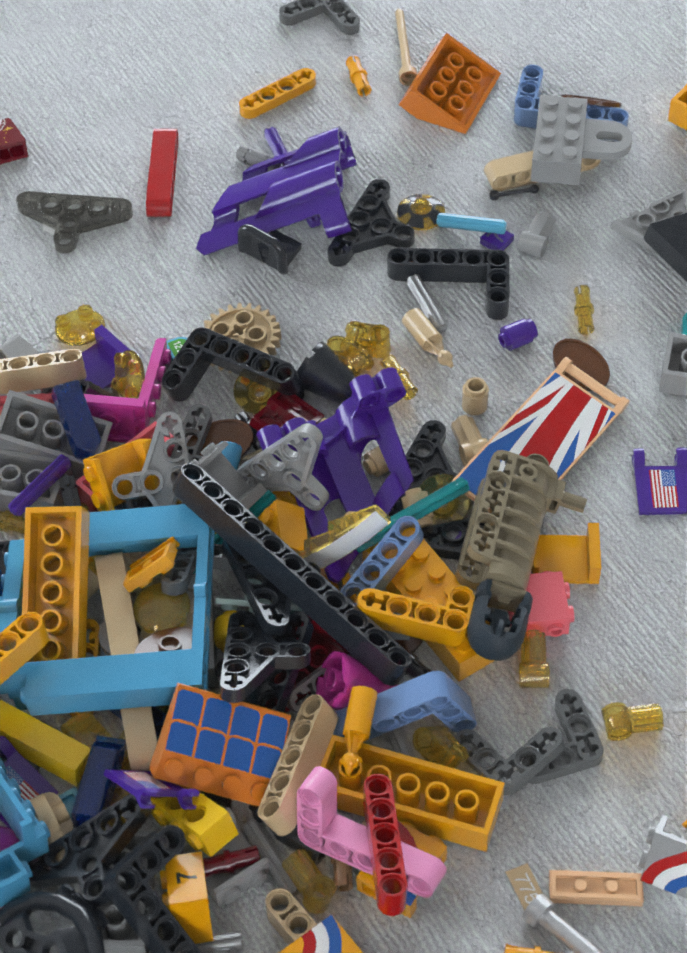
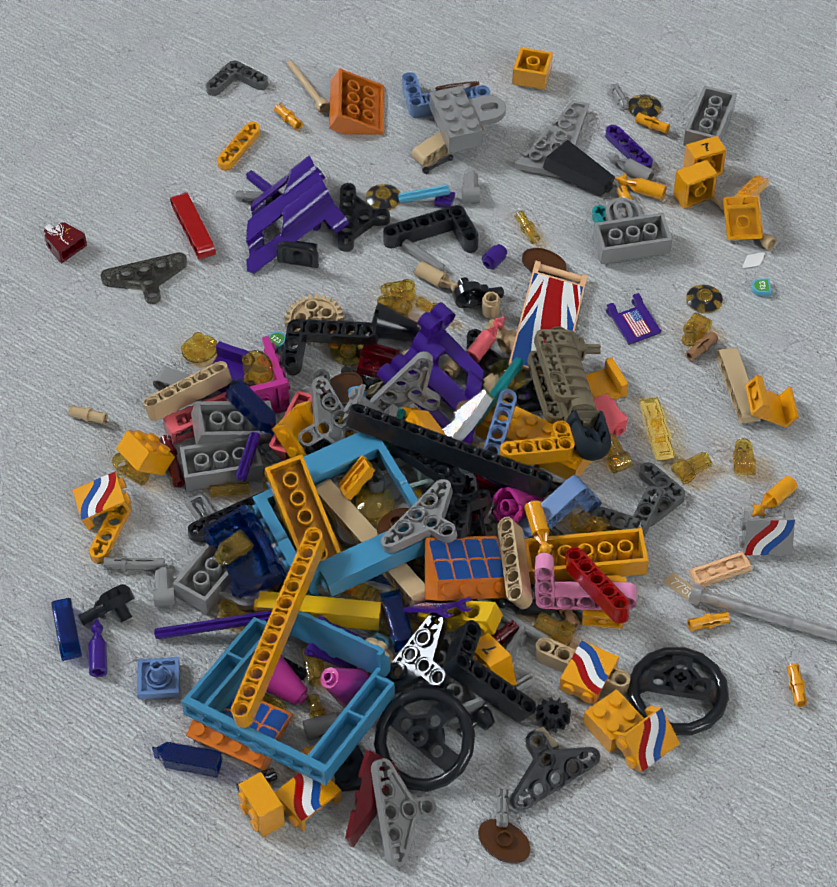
camera: 25 degrees left, 0 degrees up
(177, 663) = (418, 527): none -> light grey beam
(437, 440) = (485, 340): none -> coral wheel
(459, 370) = (466, 298): none -> black pin
(612, 647) = (656, 428): none -> clear yellow slope

